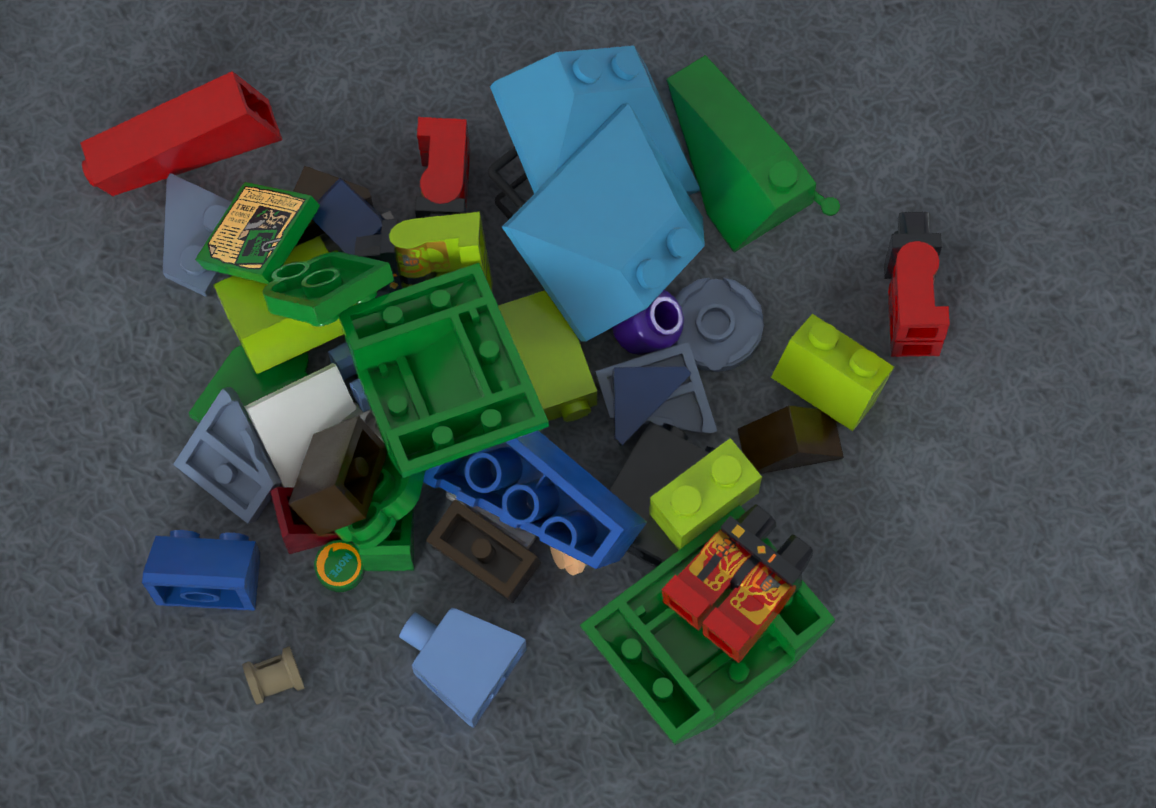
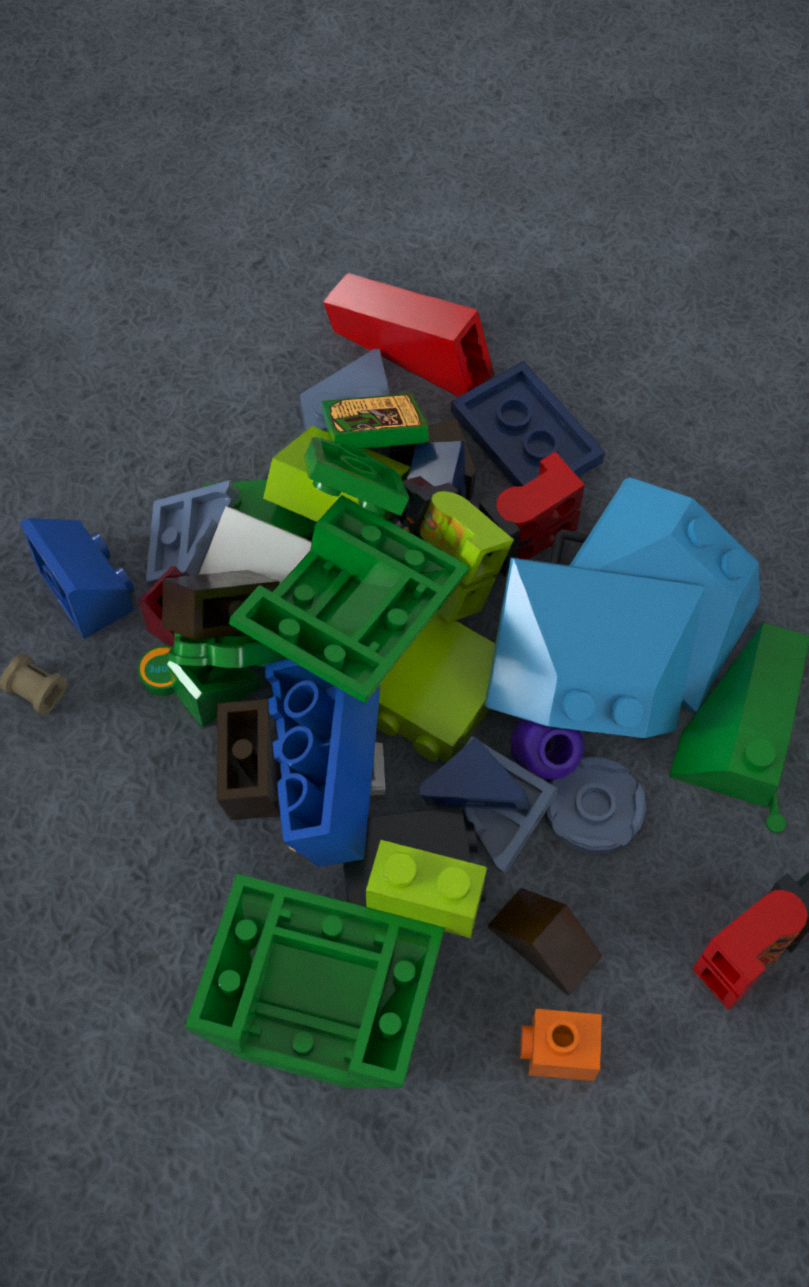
camera: 50 degrees right, 10 degrees down
(351, 118) = (523, 423): none -> dark blue plate
(463, 659) = (146, 813): medium blue torso -> none
(738, 582) = (363, 970): hips -> none
(832, 372) = (630, 924): lime brick -> none
(880, 489) = (562, 1044): none -> orange brick

